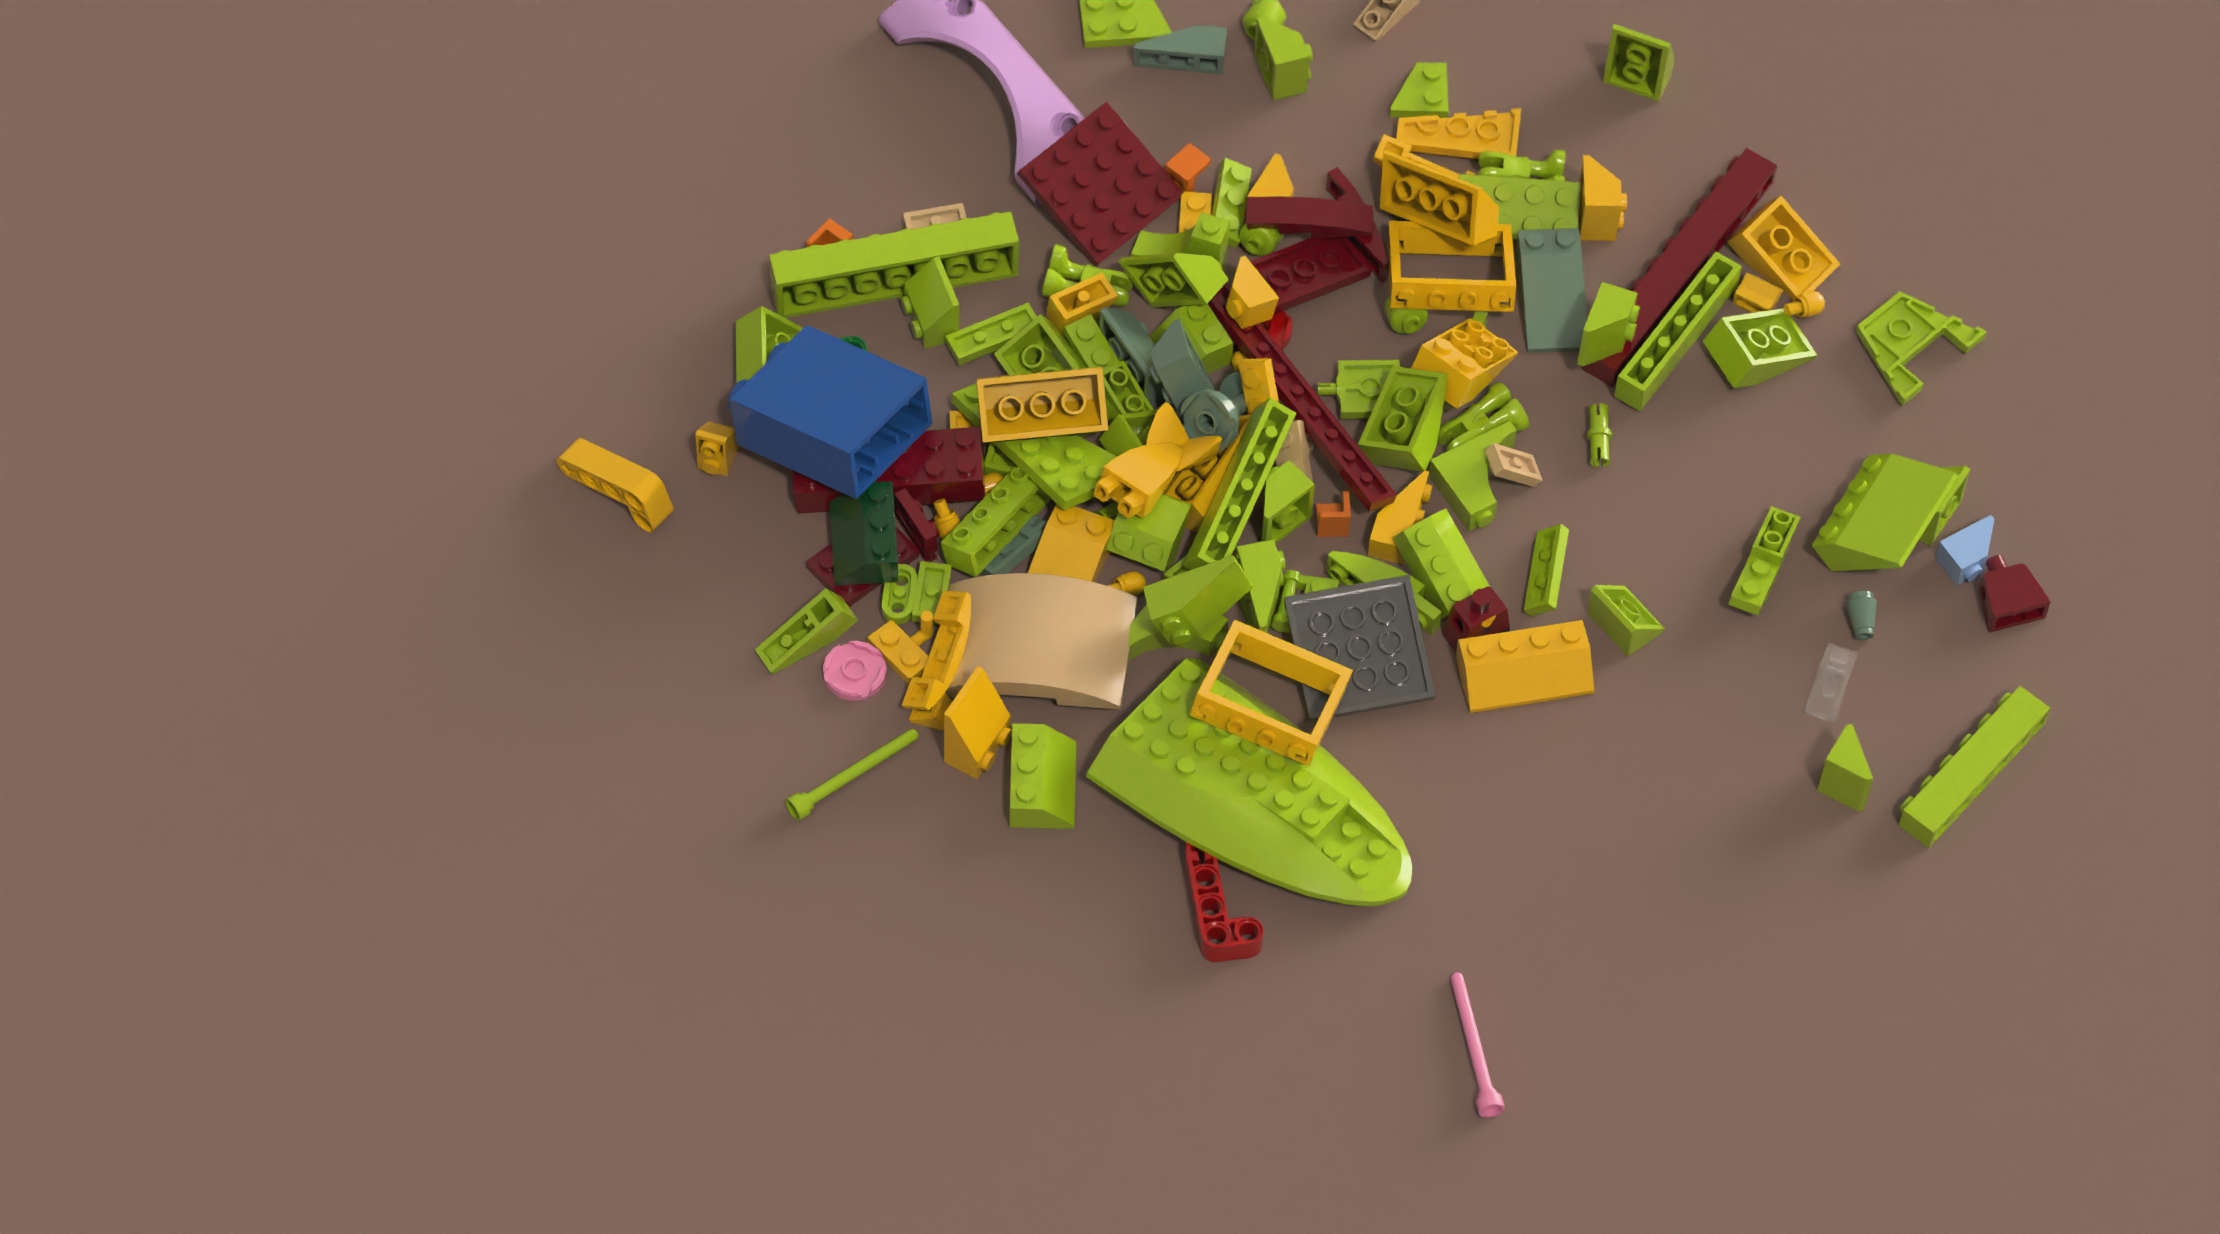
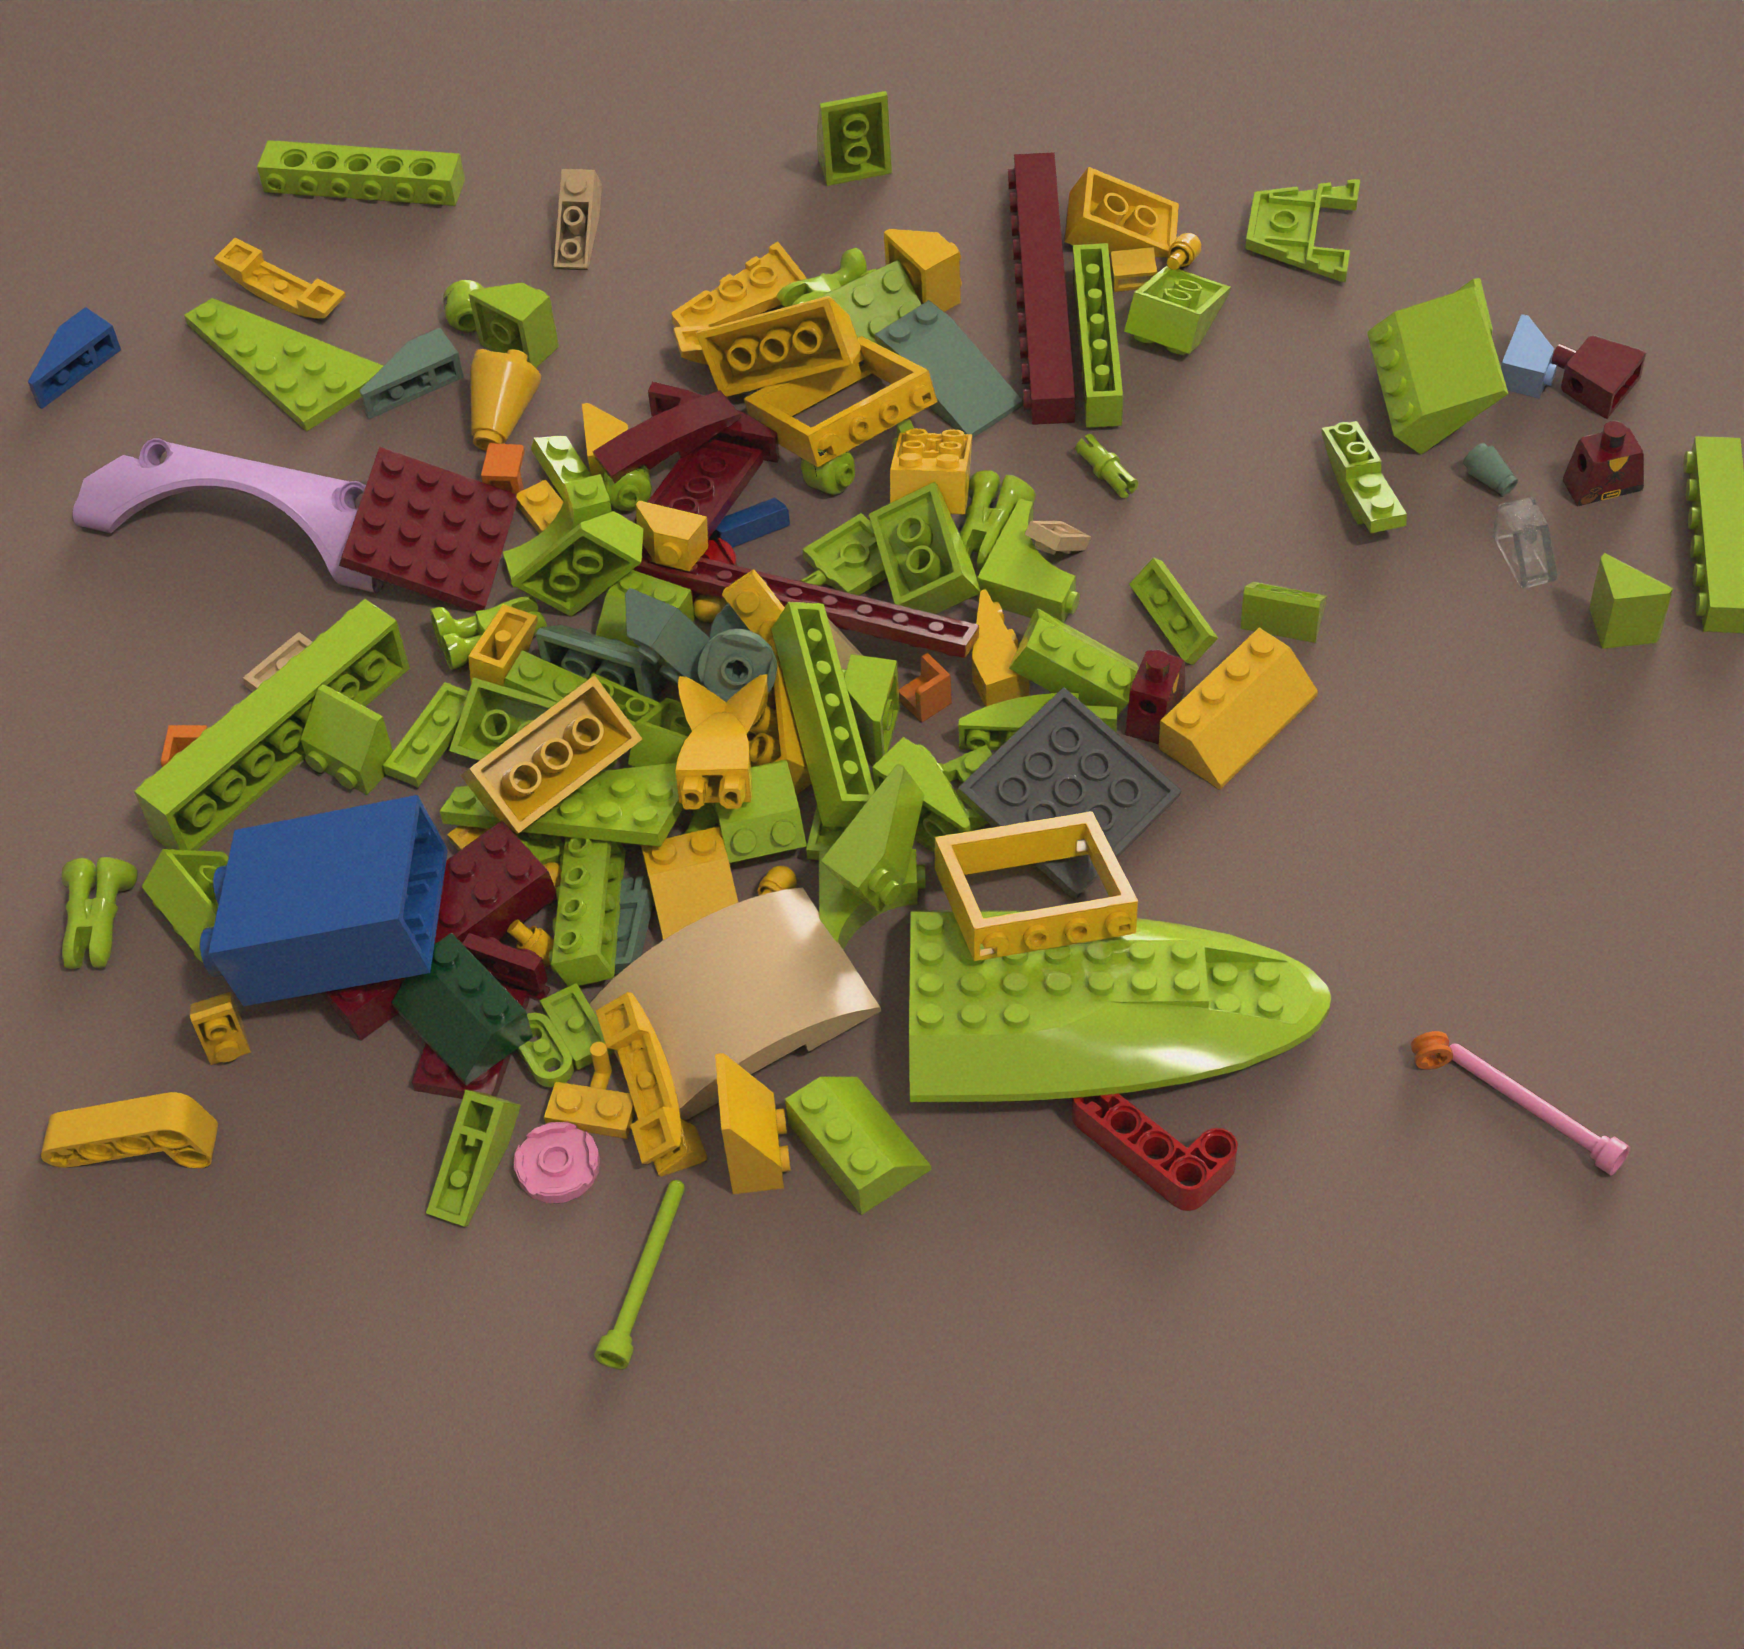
camera: 30 degrees left, 5 degrees down
(690, 322) = (92, 919): none -> lime piece
(1226, 110) = (499, 394): none -> yellow cone
(1323, 317) = (753, 522): none -> blue slope
(1423, 92) = (672, 282): lime wing -> none
(1440, 966) = (1431, 1050): none -> orange bush
(1608, 324) = (1040, 352): lime slope -> none
(1939, 665) = (1605, 465): none -> dark red torso

